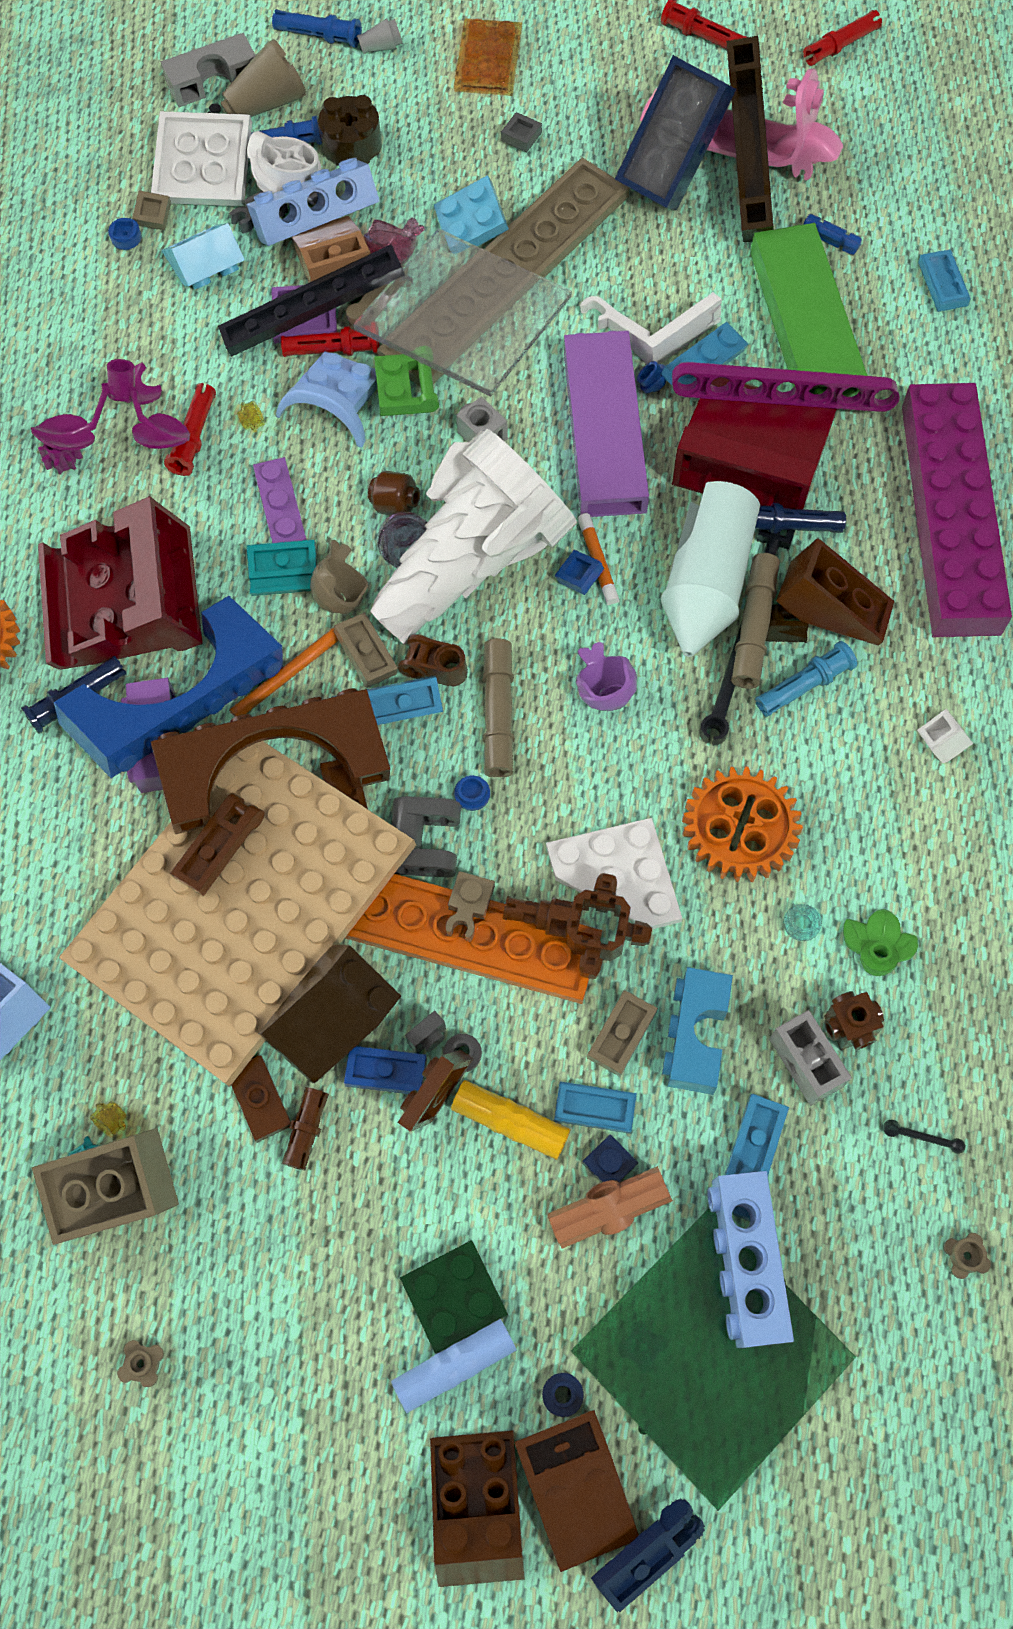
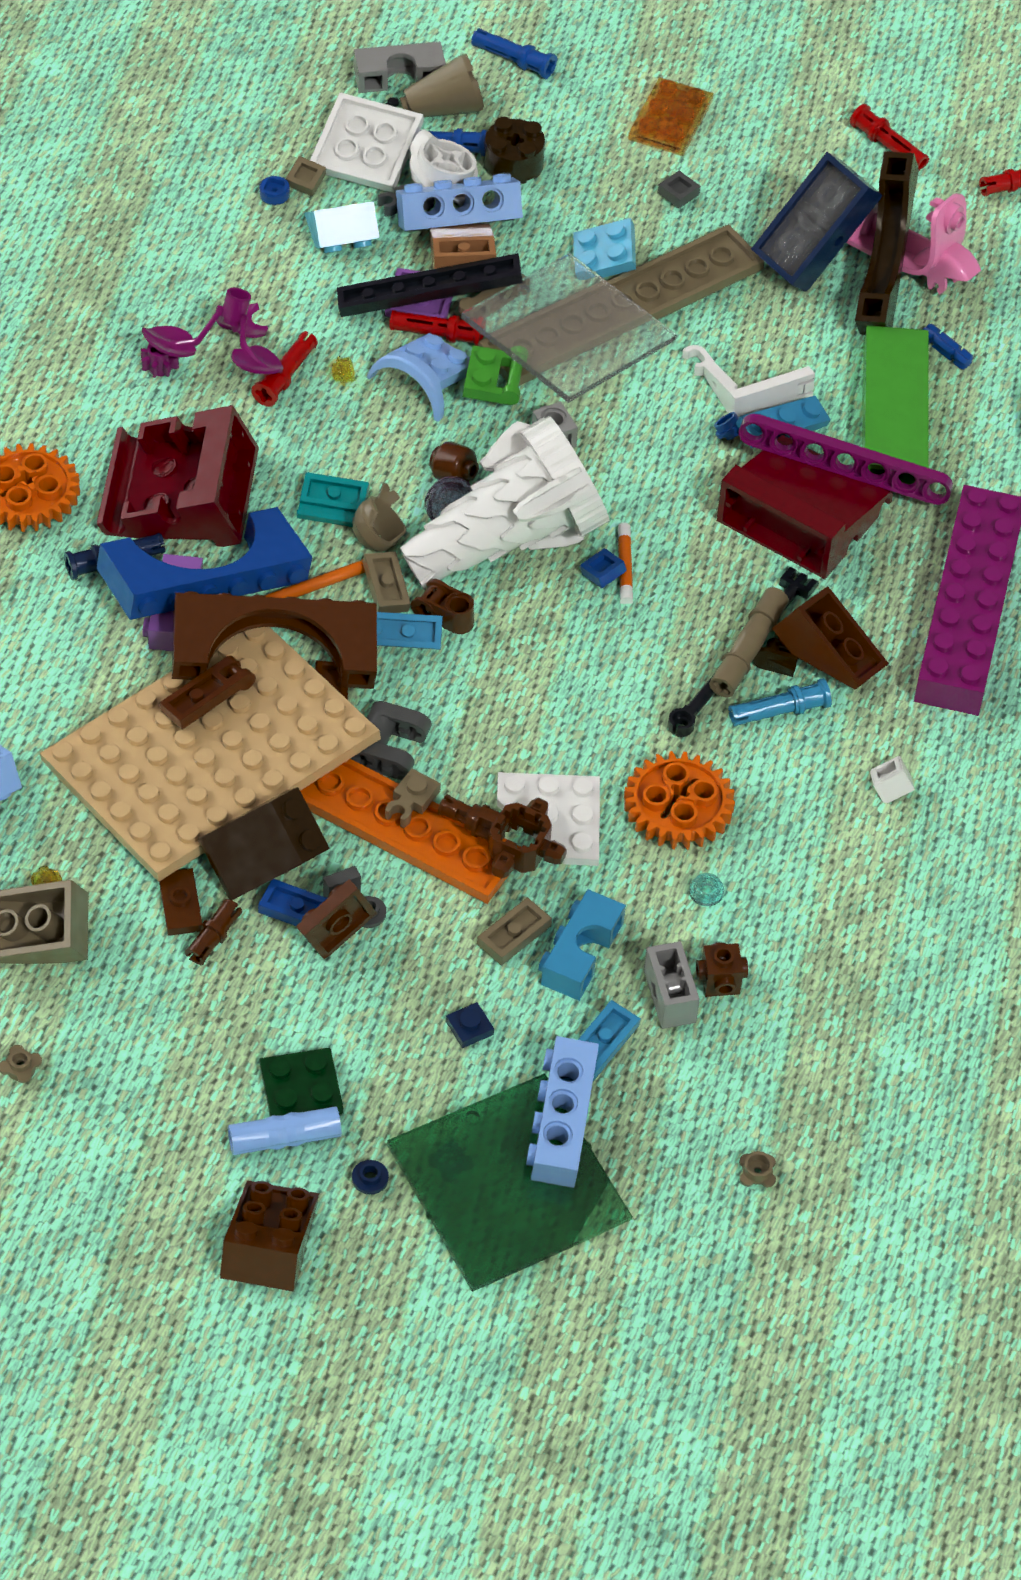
camera: 10 degrees right, 15 degrees down
(279, 501) = (347, 444): medium lavender plate -> none
(380, 37) = (572, 75): light grey cone -> none
(403, 240) = (530, 256): clear pink hat -> none
(472, 793) = (445, 718): blue plate -> none
(498, 708) = (491, 658): dark tan piece -> none
(510, 1119) = (394, 969): yellow axle -> none
(577, 1490) = (358, 1236): reddish brown slope -> none
(595, 1107) = (471, 982): dark azure tile -> none
(605, 424) = (669, 453): medium lavender brick -> none
(609, 673) = (596, 659): medium lavender hat -> none
(609, 1207) = (457, 1050): nougat piece -> none
(649, 1555) = (400, 1302): dark blue hinge -> none
(710, 565) = (722, 585): light aqua piece -> none
(777, 518) = (802, 567): dark blue pin -> none
(881, 936) = (770, 923): bright green plate -> none
(892, 1129) = (728, 1063): black hinge -> none

